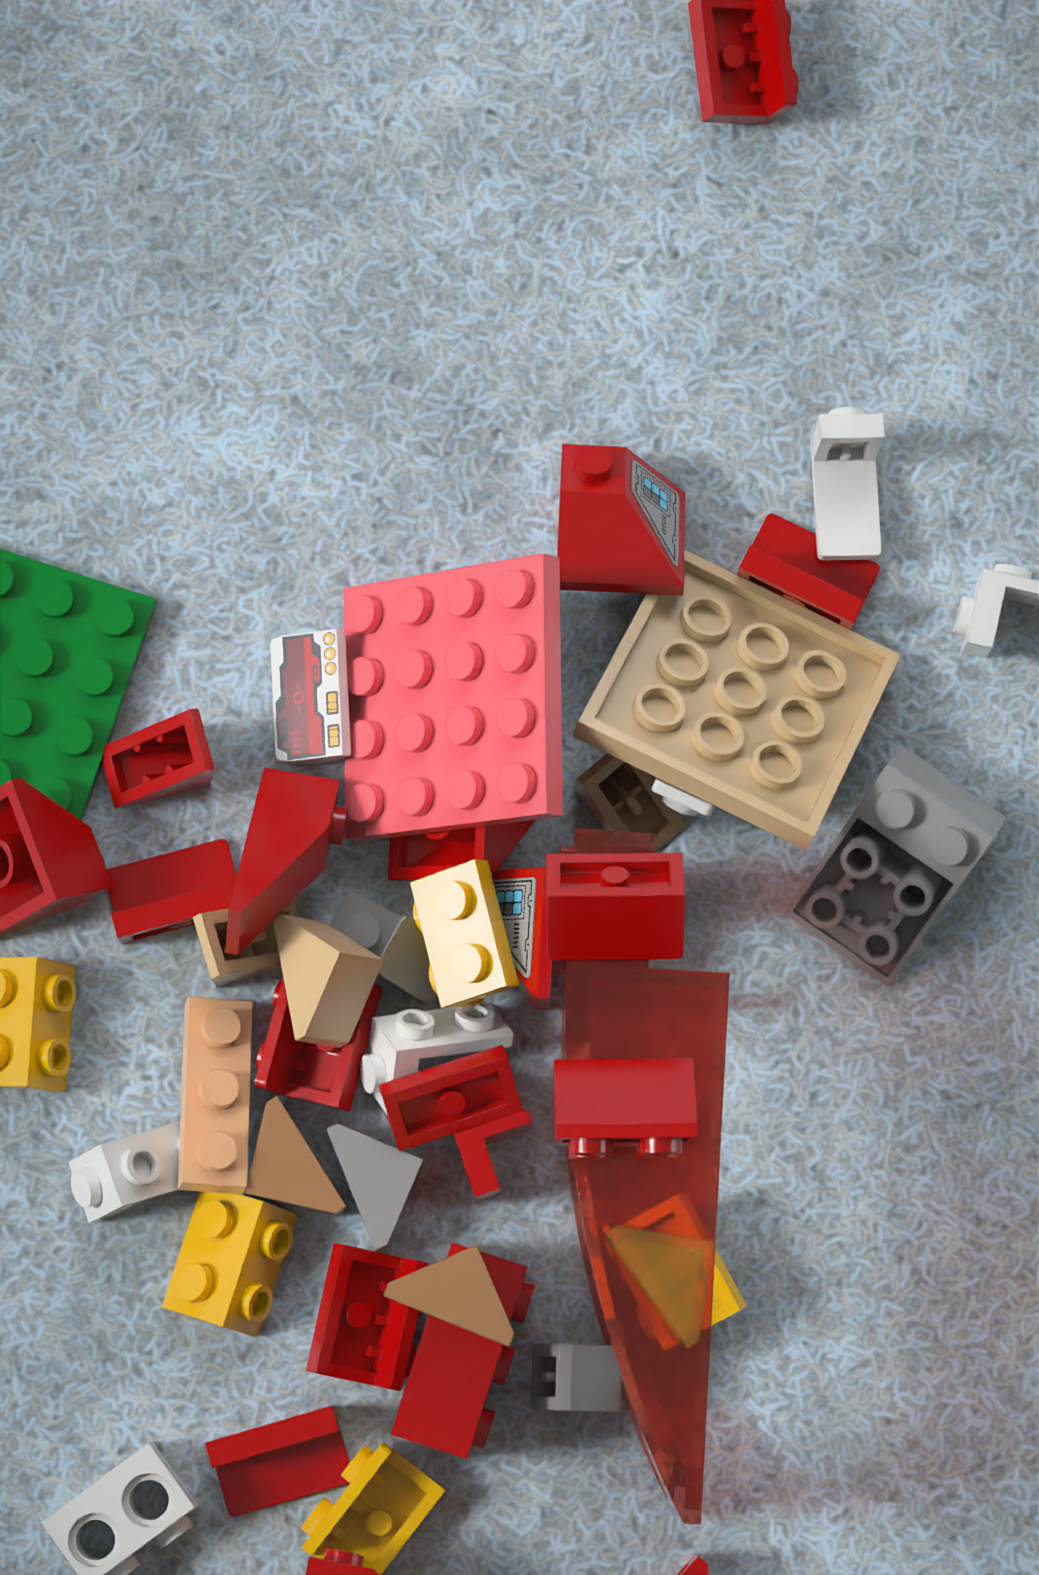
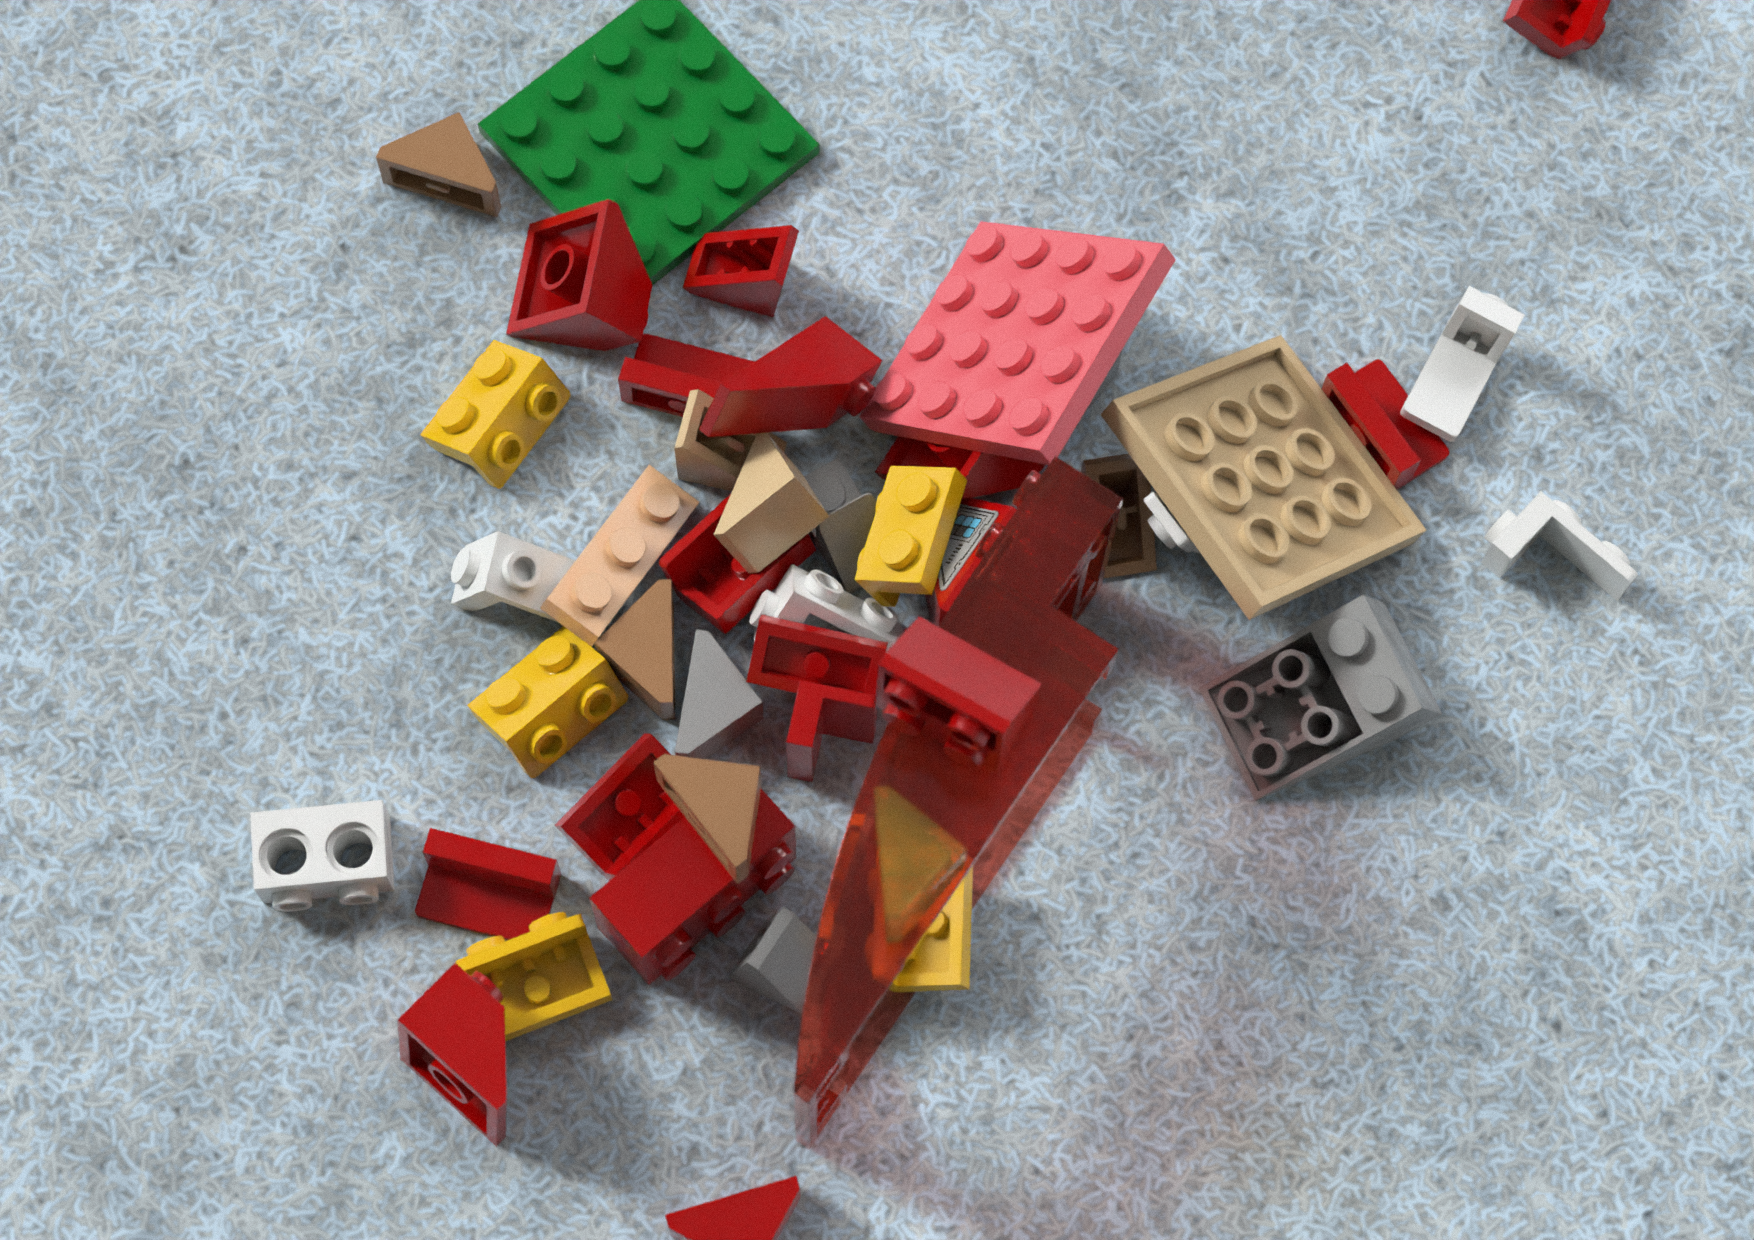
camera: 30 degrees right, 10 degrees down
(310, 697) = (898, 287): slope -> none
(615, 906) = (1049, 533): red panel -> none
(618, 524) = (1242, 285): red slope -> none

